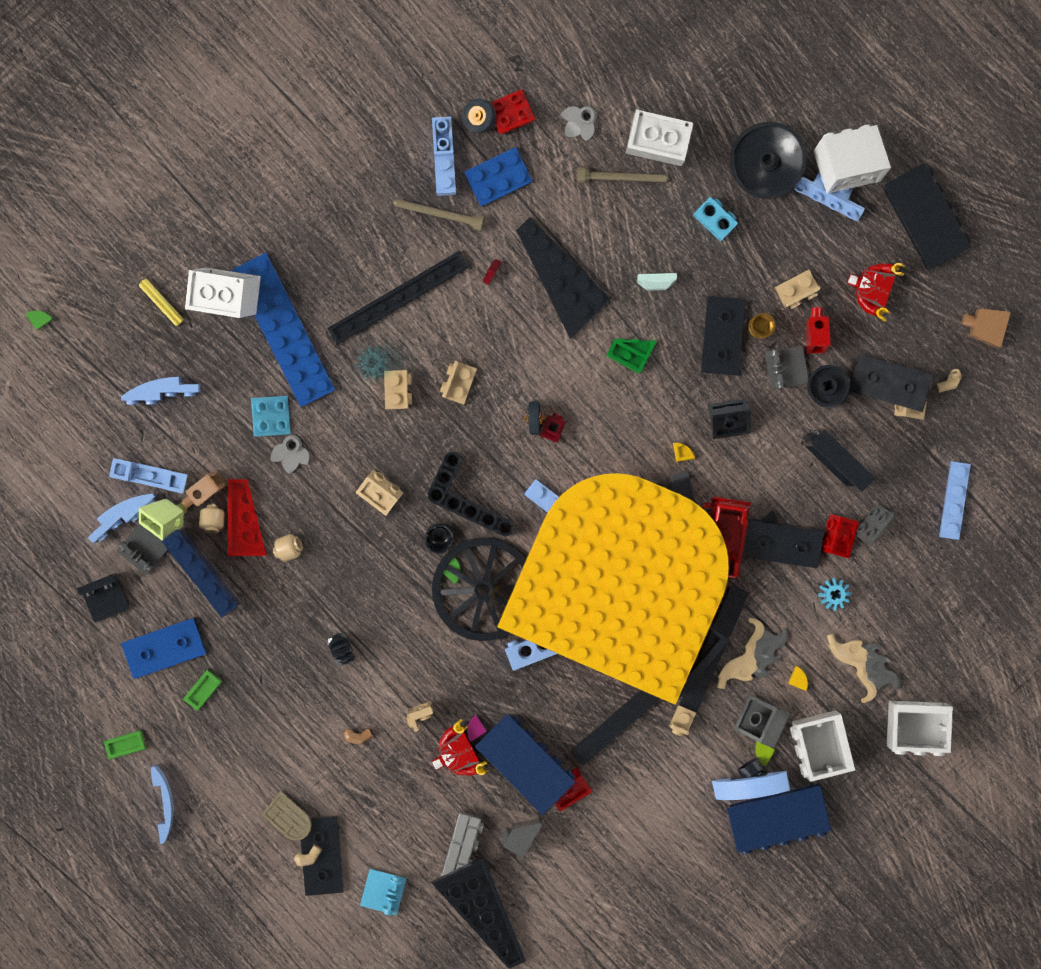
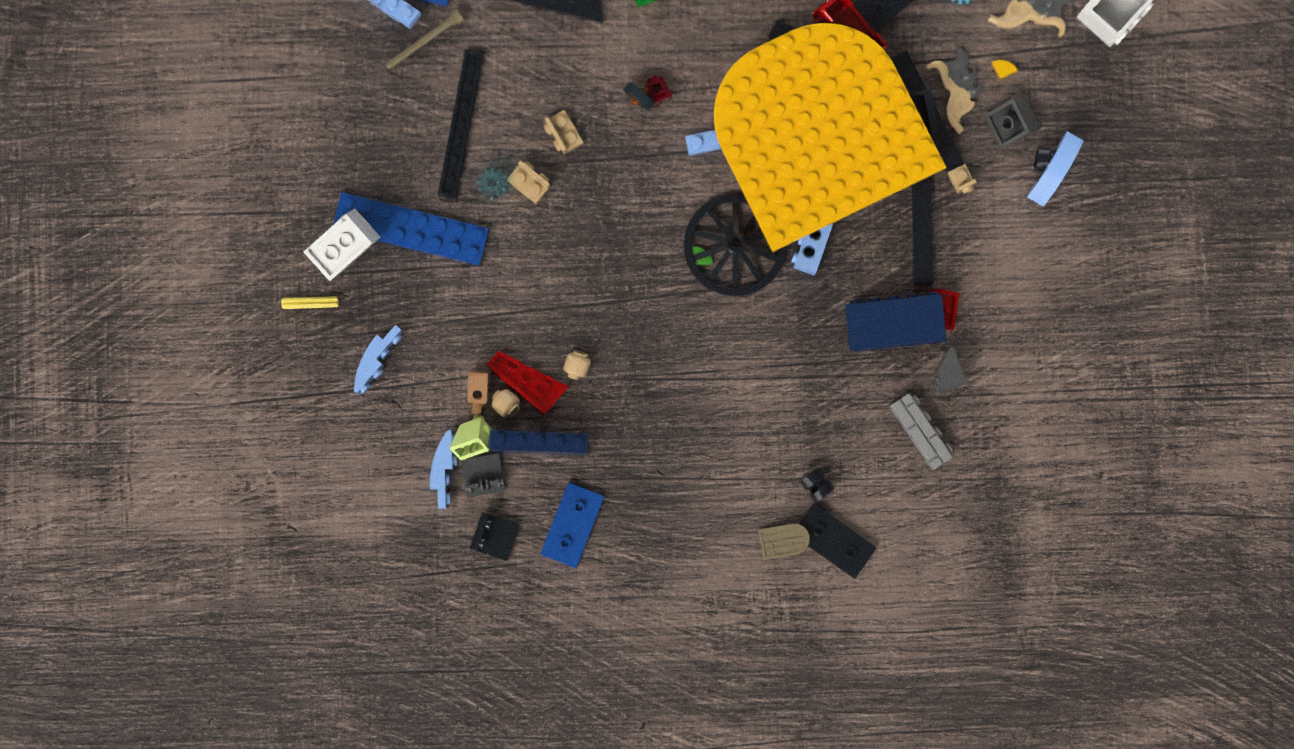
camera: 55 degrees left, 5 degrees down
(38, 318) = (241, 405): bright green tile -> none
(125, 744) = (620, 618): bright green tile -> none
(148, 475) = (431, 423): light blue slope -> none
(159, 779) = (710, 641): light blue slope -> none
(202, 690) = (629, 523): bright green tile -> none
(270, 416) = (466, 293): medium azure hinge -> none
(290, 457) = (510, 305): light grey plate -> none
(308, 859) = (828, 552): tan arm -> none
(341, 649) = (688, 388): black gear -> none
(351, 808) = (817, 485): none -> black wheel
(355, 738) = (767, 436): medium nougat arm -> none
(379, 492) = (594, 260): tan bracket -> none
(383, 892) = (902, 517): medium azure hinge -> none
(419, 712) = (786, 374): tan bracket -> none
(438, 538) = (667, 244): black hair -> none
(458, 753) = (843, 368): red torso -> none
(463, 503) = (657, 204): black beam -> none
(475, 728) = (836, 341): dark pink tile -> none
(477, 901) = (974, 449): black wing -> none
(491, 271) = (502, 38): dark red tile -> none
(682, 452) = (759, 12): yellow tile -> none
(763, 752) = (1036, 140): lime tile -> none
(778, 818) = (1098, 171): dark blue brick -> none
(822, 746) = (1070, 90): white container -> none

